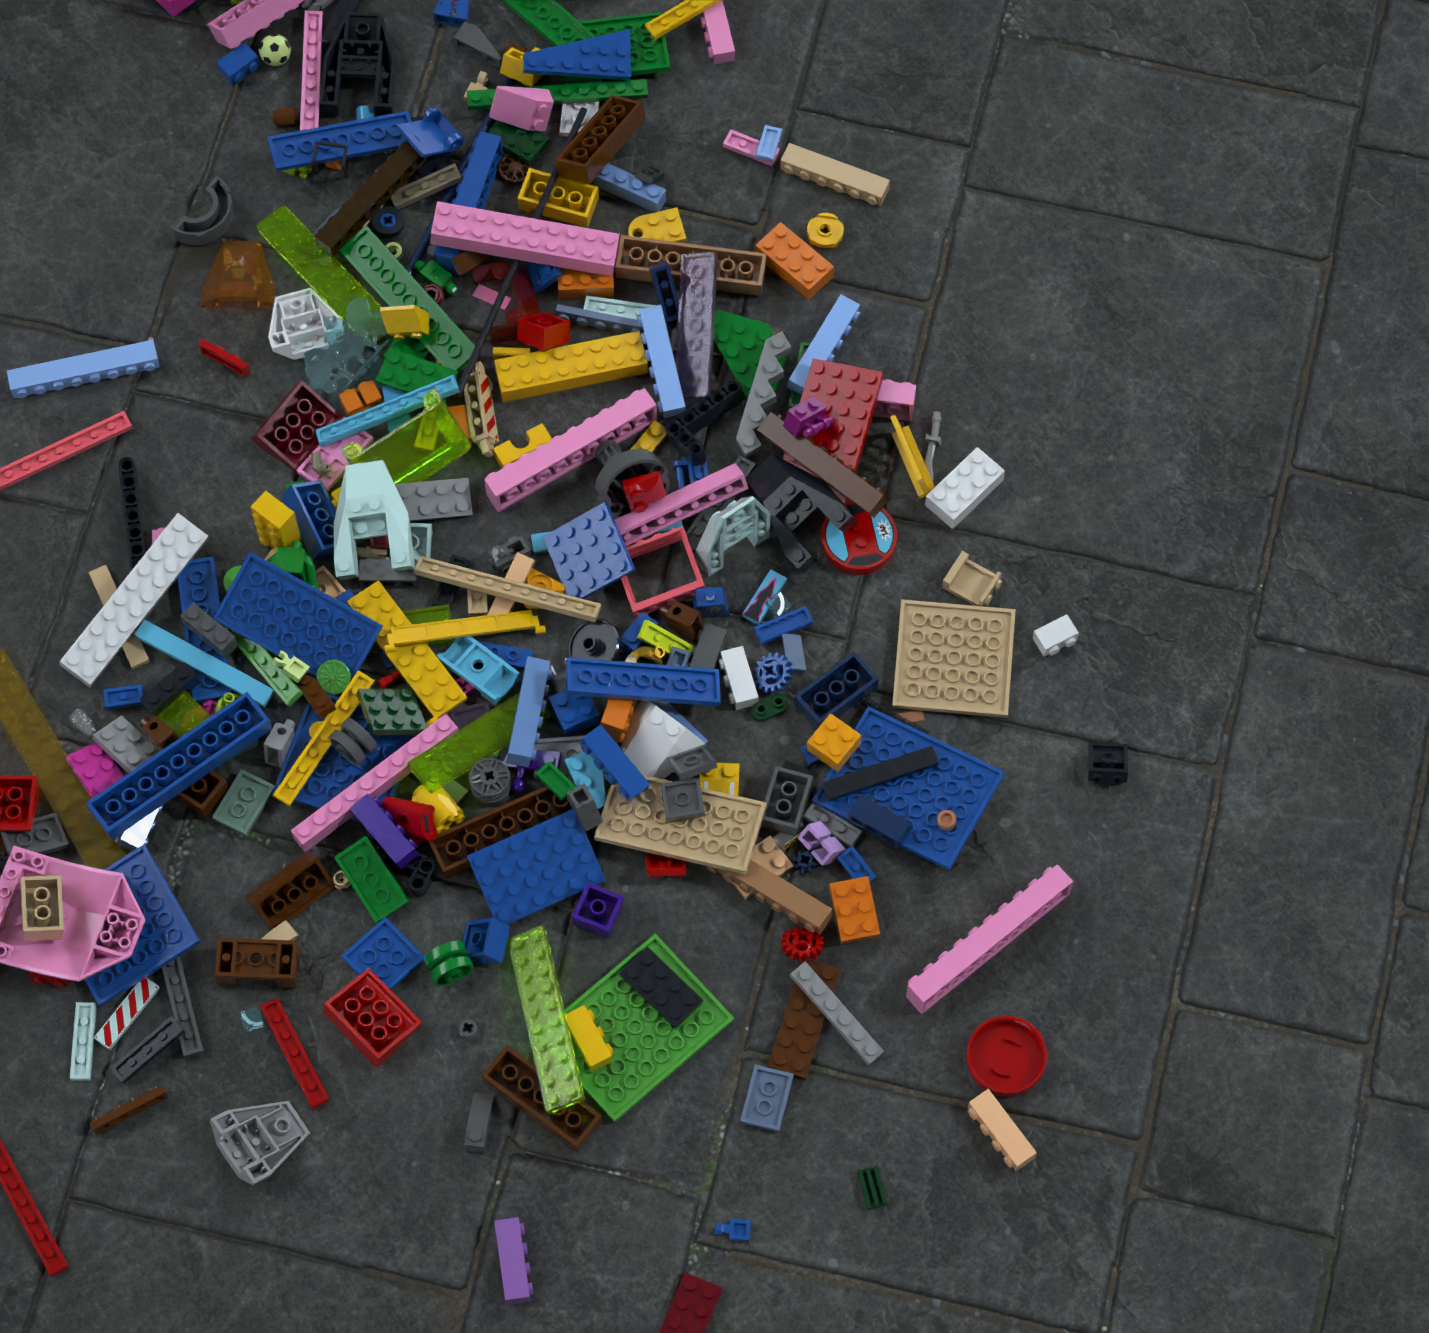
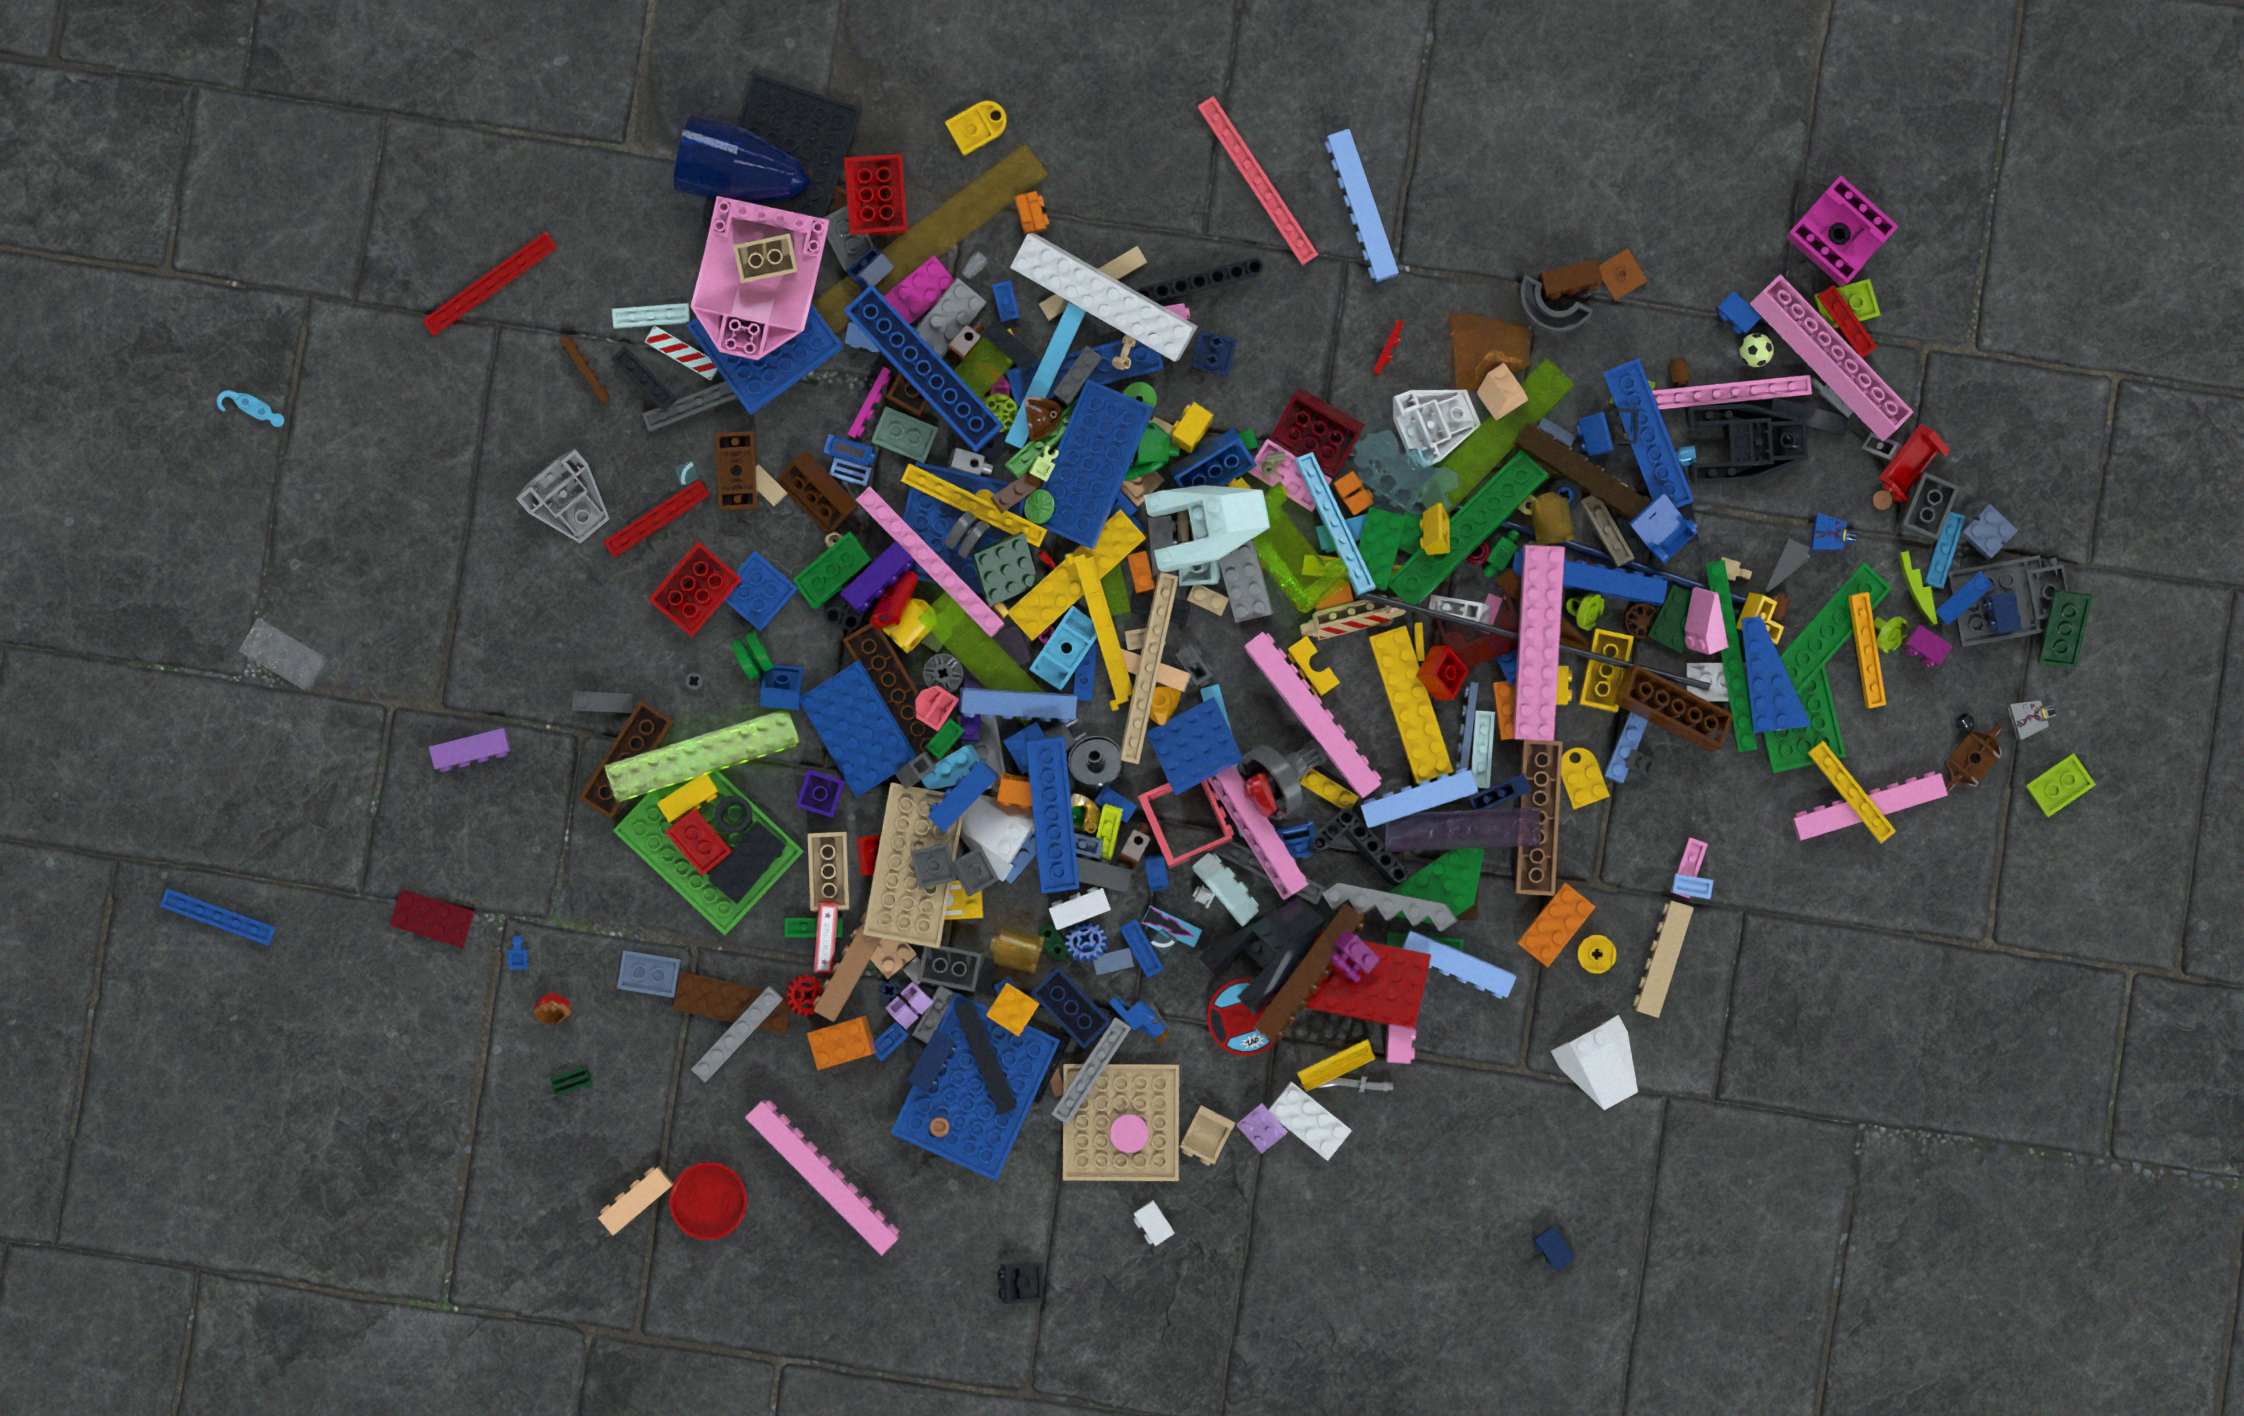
camera: 85 degrees right, 20 degrees up
(39, 665) = (1030, 212): none -> orange brick
(70, 814) = (870, 268): none -> dark blue brick
(184, 191) = (1570, 280): none -> reddish brown brick
(186, 158) = (1621, 274): none -> dark orange plate
(201, 588) = (1123, 361): none -> tan bar
(207, 511) = (1214, 353): none -> dark blue plate
(213, 836) = (866, 411): none -> dark pink plate
(244, 666) = (1041, 416): none -> reddish brown hat
(252, 856) = (849, 450): none -> blue window
(281, 261) = (1501, 392): none -> light nougat slope
(287, 847) = (865, 476): none -> light blue tile
(333, 186) = (1594, 435): none -> blue slope
(409, 225) = (1551, 519): none -> clear yellow cylinder
(412, 593) = (1141, 572): none -> orange brick
(446, 538) = (1208, 599): none -> tan plate
(482, 312) = (1461, 608): none -> white slope
(499, 205) = (1588, 610): none -> lime tile
(521, 786) = (934, 706): none -> coral slope
(611, 1010) = (719, 811): none -> black tyre
(634, 1030) = (698, 841): none -> red plate
(678, 909) = (829, 869): none -> tan brick
(734, 931) = (807, 927): none -> green plate
(737, 563) = (1203, 895): none -> white brick
(745, 915) = (826, 937): none -> tile
(774, 735) = (1017, 949): none -> clear yellow cylinder
(794, 1197) = (552, 1008): none -> dark orange hair
(850, 630) = (1144, 1016): none -> blue plate
(901, 677) = (1091, 1070): none -> light grey plate
(929, 237) = (1600, 1063): none -> white wedge
(965, 648) = (1129, 1133): none -> bright pink tile
(969, 528) = (1261, 1128): none -> lavender plate
(1101, 288) = (1554, 1248): none -> dark blue brick

